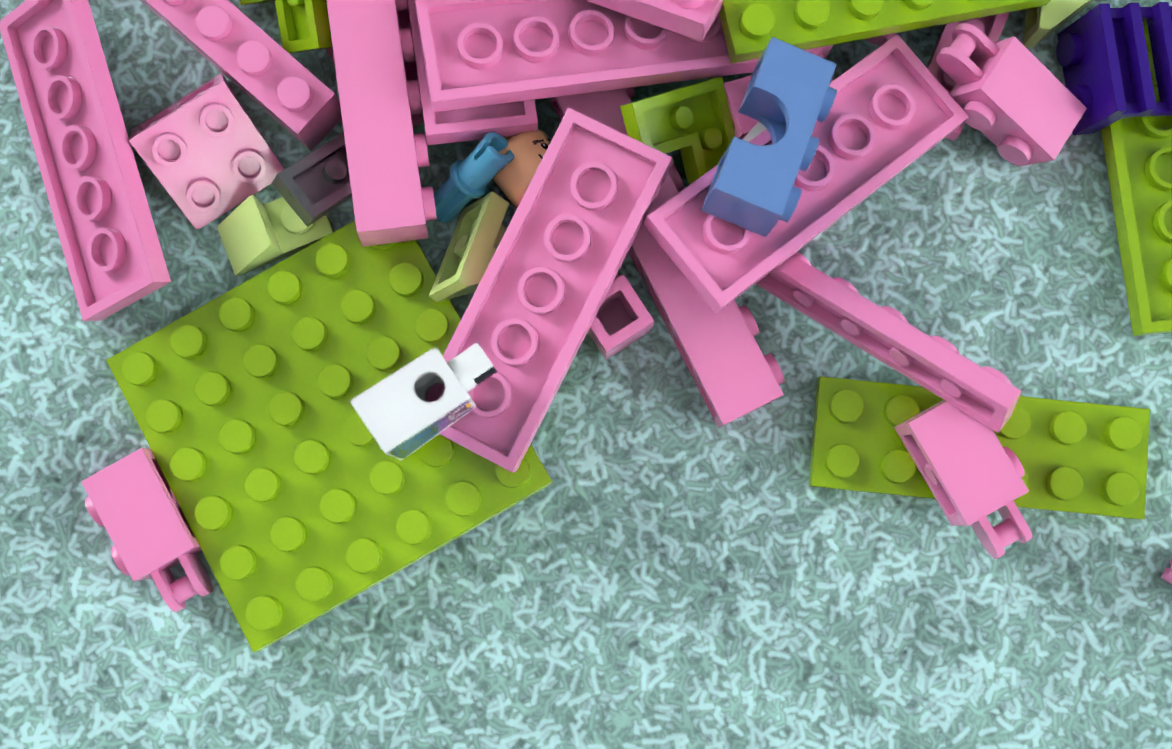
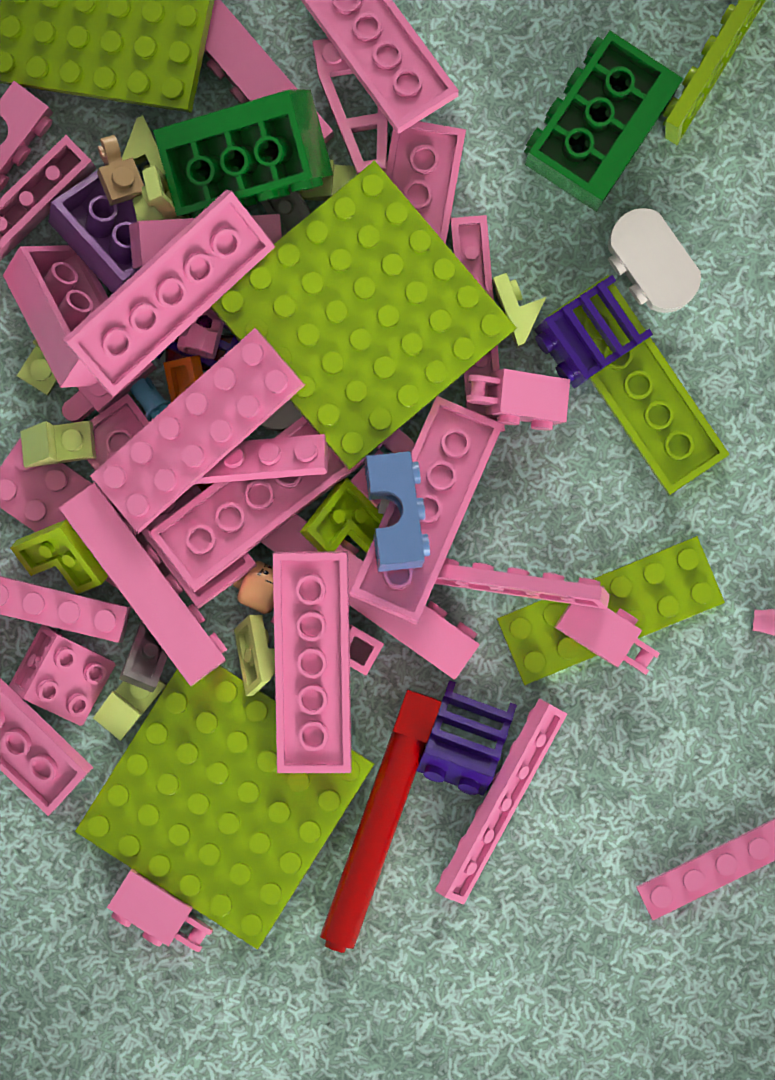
camera: 30 degrees left, 5 degrees up
(398, 406) = (274, 775): white torso -> none
(471, 176) = (231, 612): medium azure axle -> none
(516, 566) = (379, 820): none -> red brick
(671, 537) = (459, 759): none -> dark purple plate
(696, 628) = (500, 802): none -> bright pink plate

